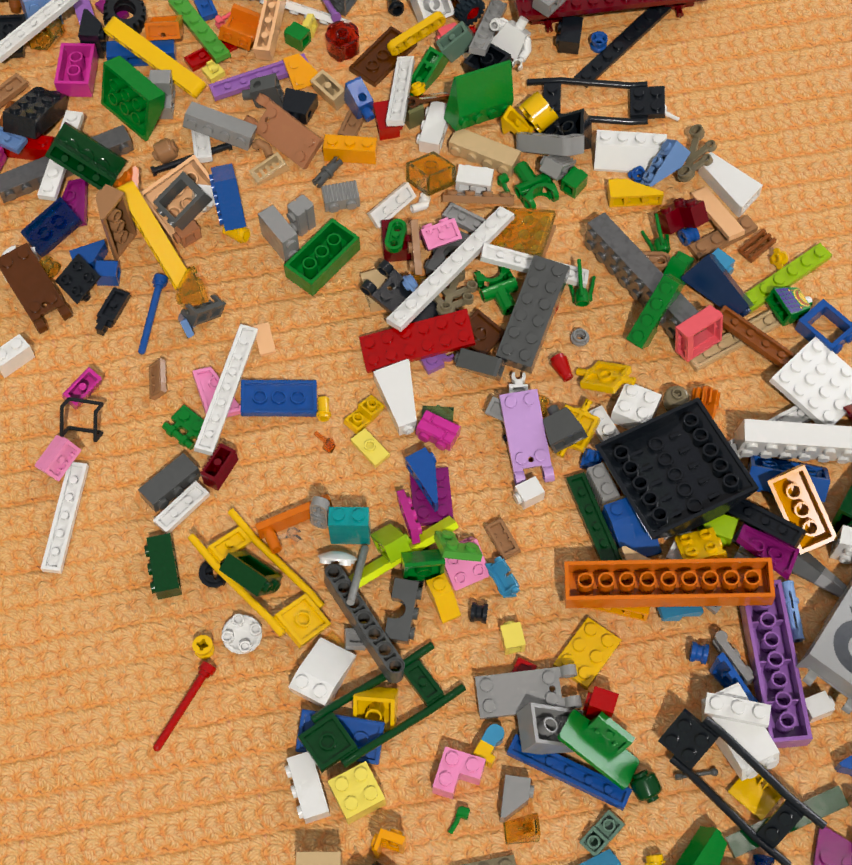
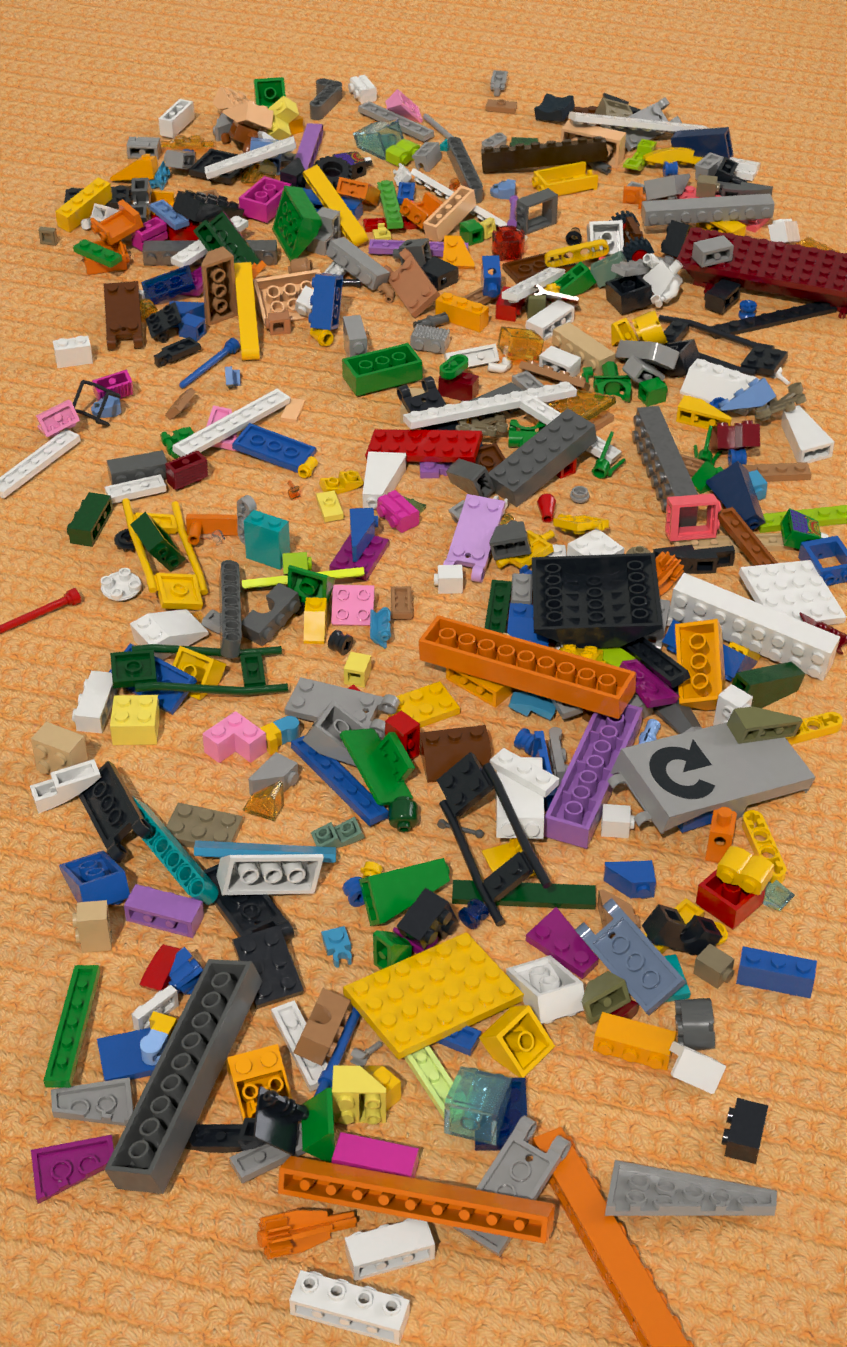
camera: 25 degrees right, 20 degrees down
(85, 413) = (111, 409): none -> medium blue rock
(190, 210) = (285, 292): dark grey window -> none
(191, 289) = (250, 353): clear yellow slope -> none
(203, 312) = (252, 372): dark grey hinge -> none
(203, 652) = (82, 581): yellow wheel -> none
(271, 161) = (383, 306): tan slope -> none
(301, 215) = (382, 333): light grey brick -> none
(328, 89) = (470, 268): tan brick -> none
(344, 558) = (242, 559): white dish -> none
(357, 575) = (248, 574): light grey bar -> none
(388, 839) = (133, 757): light orange bracket -> none
(409, 283) = (442, 398): medium blue plate -> none
(409, 516) = (325, 552): dark pink plate -> none
(414, 247) = (466, 377): medium nougat plate -> none
(440, 234) = (496, 380): bright pink bracket -> none
(452, 549) = (345, 576): bright green plate -> none
(462, 812) = (217, 771): green hand -> none
(480, 96) = (600, 299): green slope -> none
(650, 696) = (446, 747): none -> reddish brown slope
(659, 302) = (672, 468): green arch -> none
(718, 376) = (700, 560): none -> black slope
(719, 214) = (776, 451): light nougat tile -> none
(766, 237) = (802, 487): dark orange tile -> none
(778, 258) = (816, 499): yellow plate -> none
(817, 470) = (756, 656): none -> yellow tile

